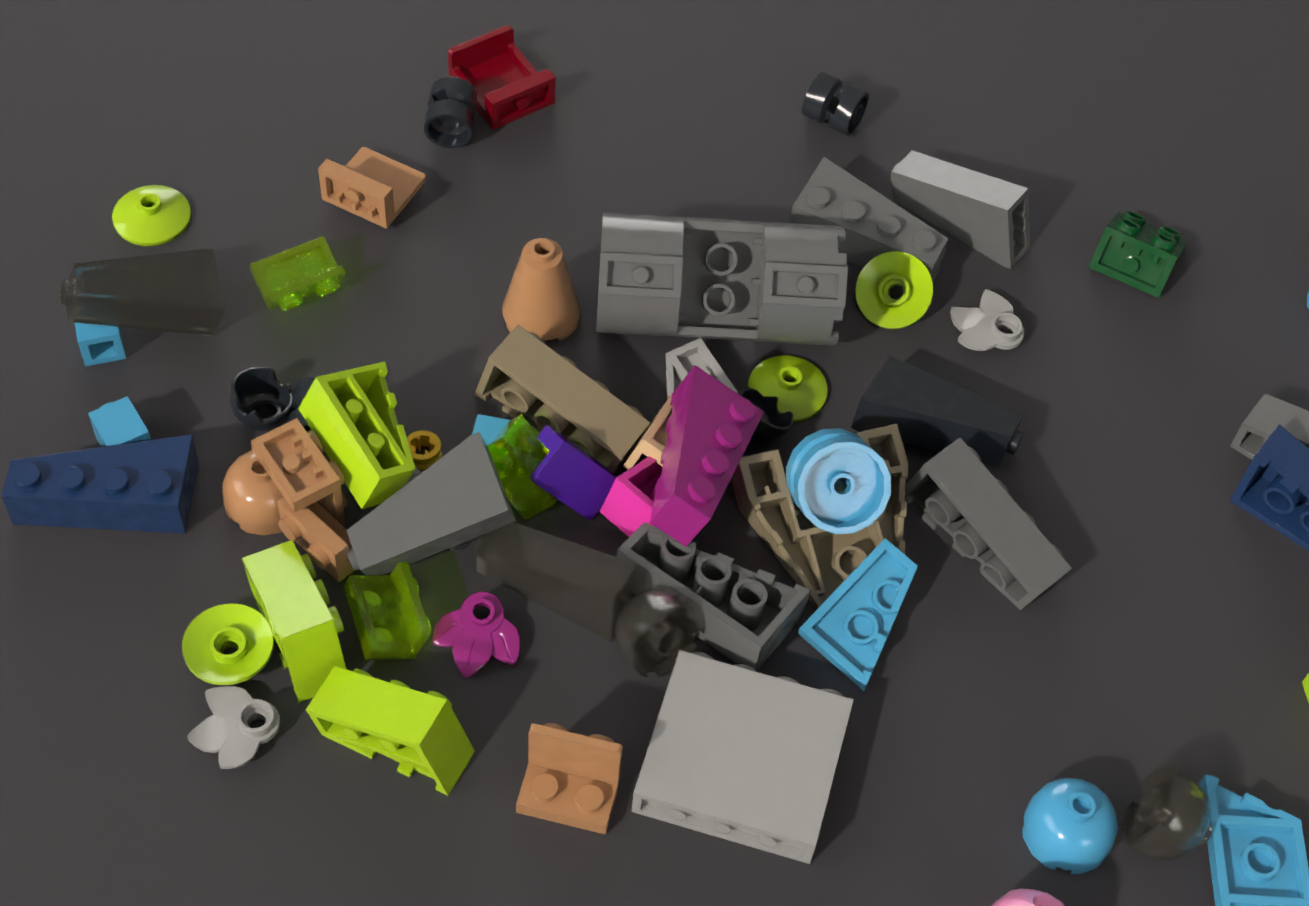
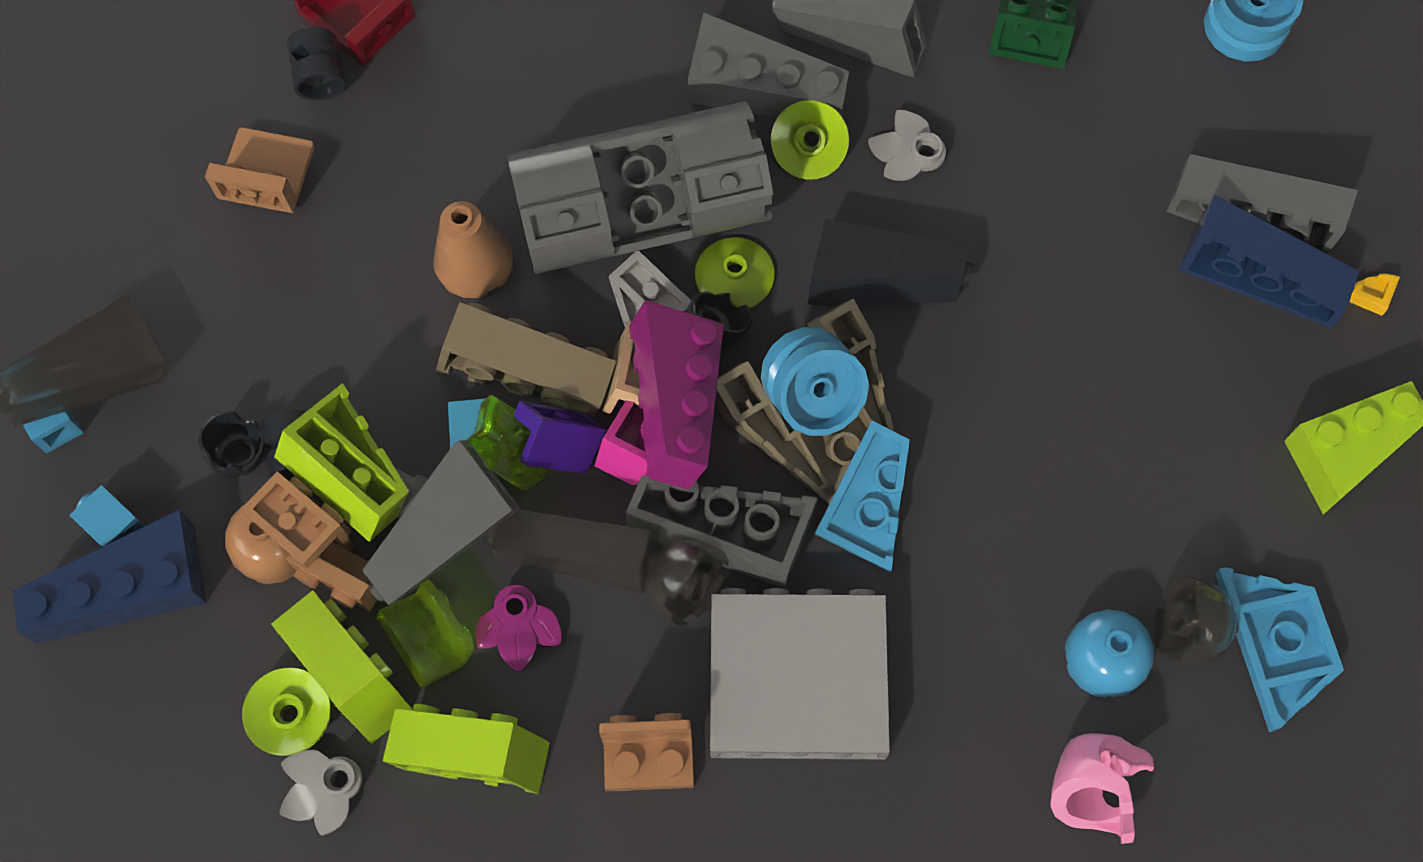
camera: 10 degrees left, 15 degrees up
(151, 215) = (63, 275): lime dish -> none
(296, 274) = (221, 293): clear neon green bracket -> none
(428, 439) = (415, 457): yellow bush -> none
(986, 523) = (962, 372): dark grey wedge -> none

